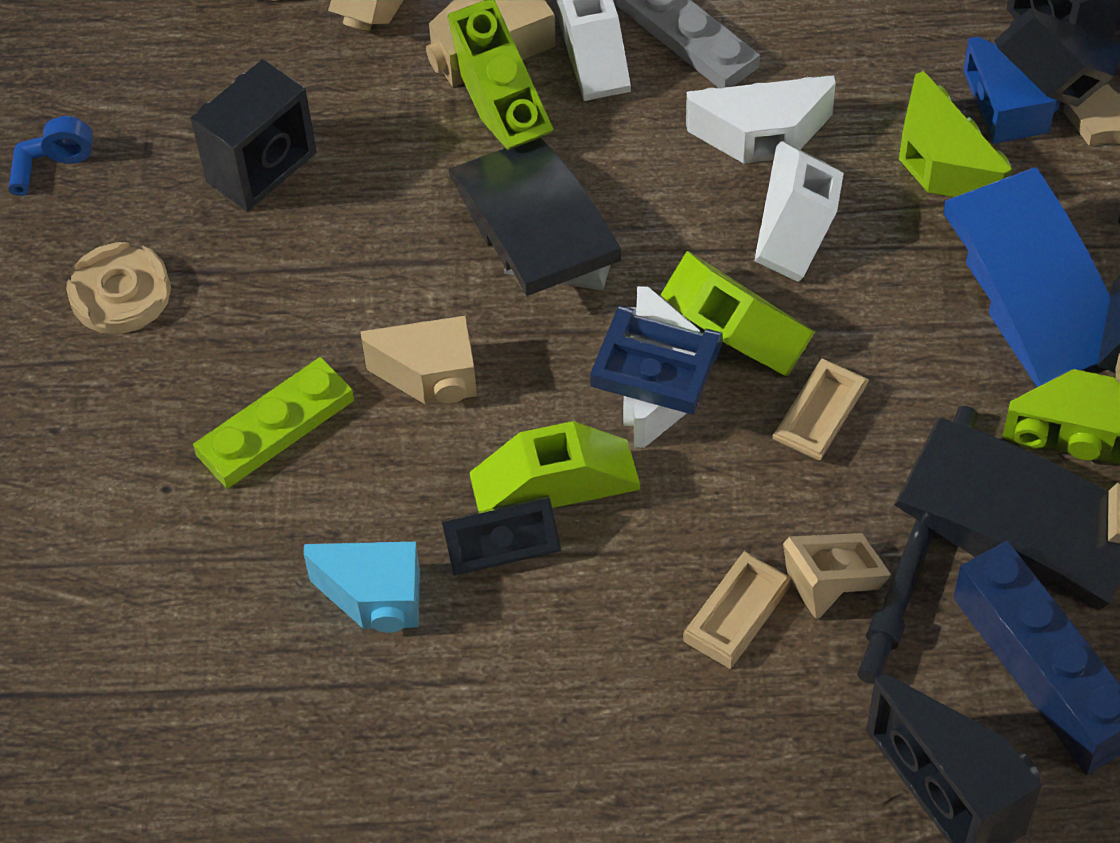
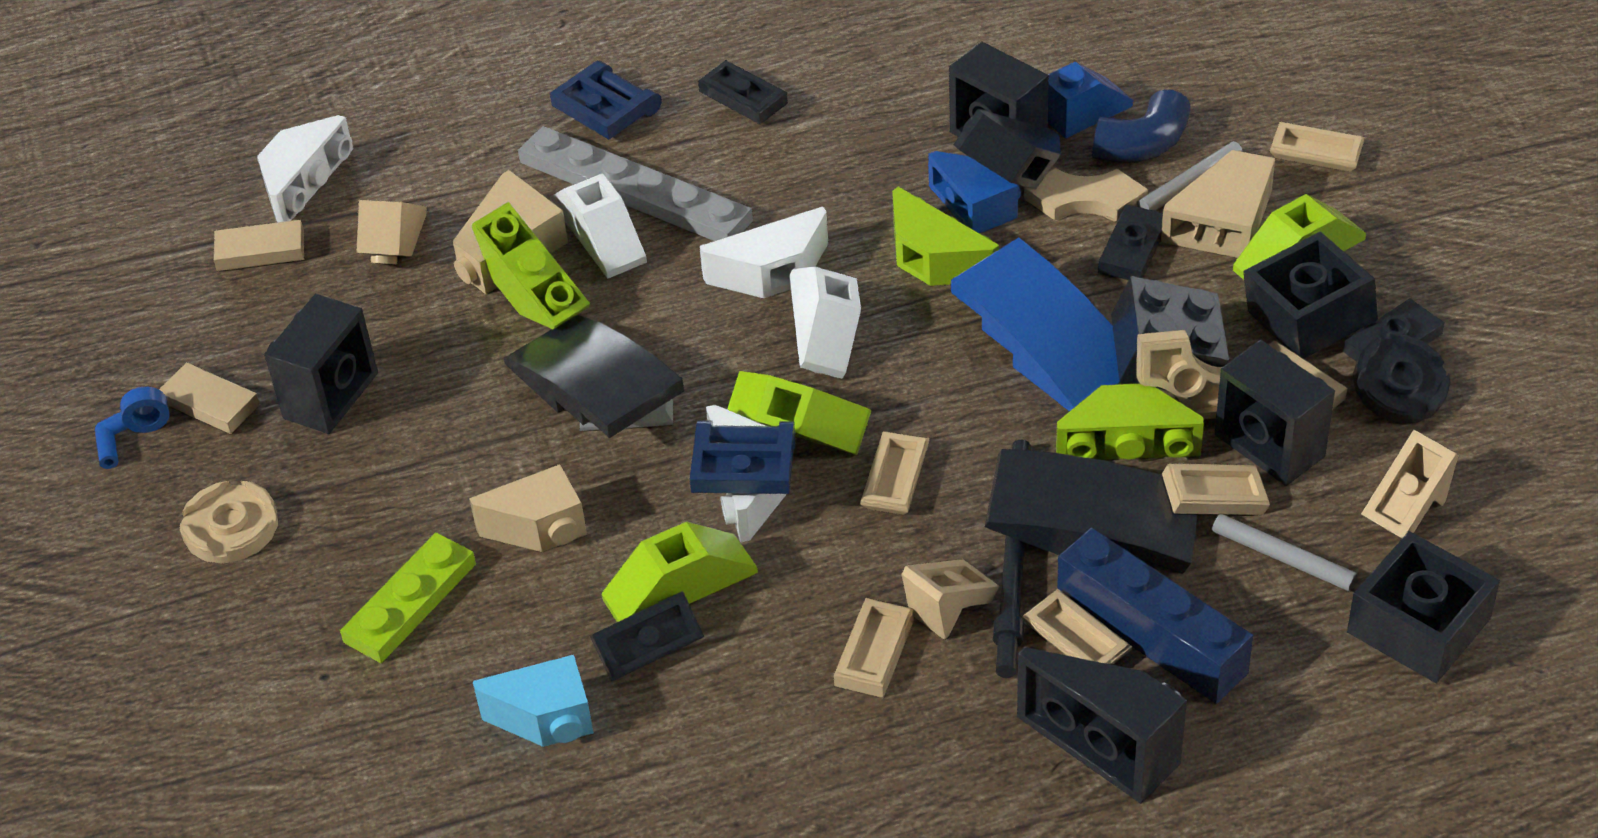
camera: 15 degrees left, 10 degrees down
(136, 140) = (209, 398): none -> tan tile
(958, 653) = (1075, 630): none -> tan tile

